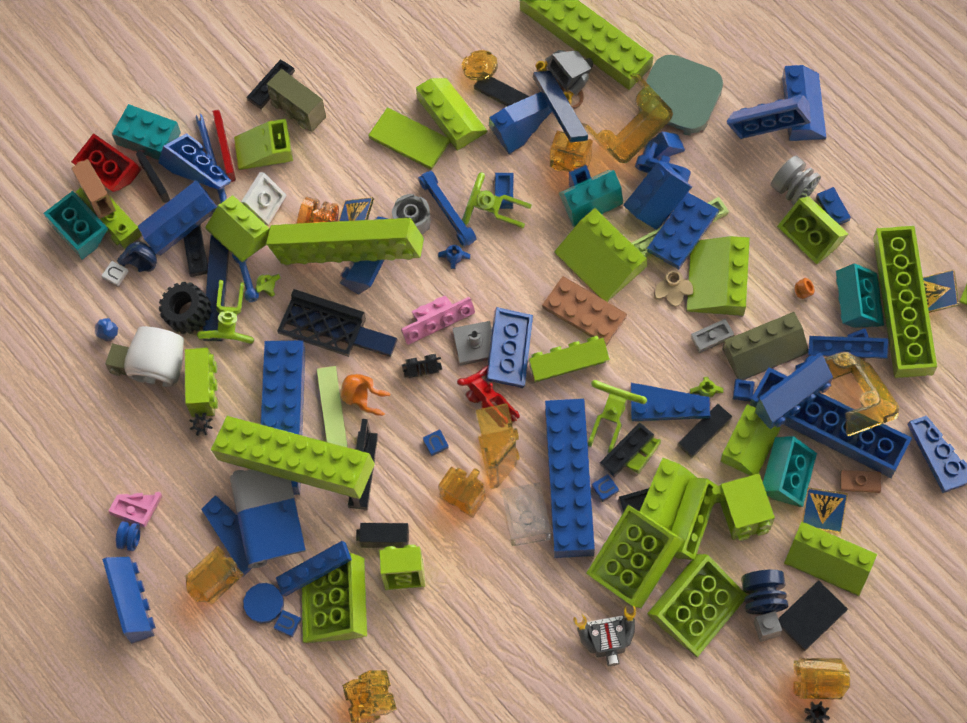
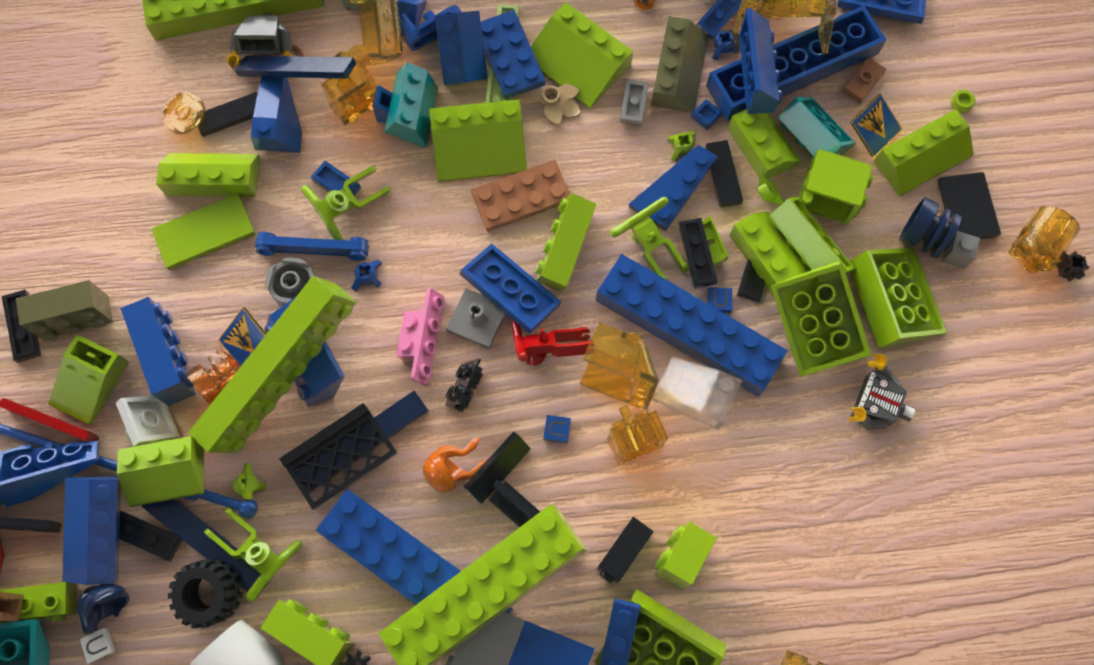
camera: 60 degrees left, 5 degrees up
(310, 170) = (158, 351): none -> blue brick
(332, 406) = (447, 512): yellowish green tile -> none
(384, 422) = (497, 467): none -> black tile
(713, 467) = (768, 190): none -> lime piece
(900, 562) = (963, 101): none -> lime tile

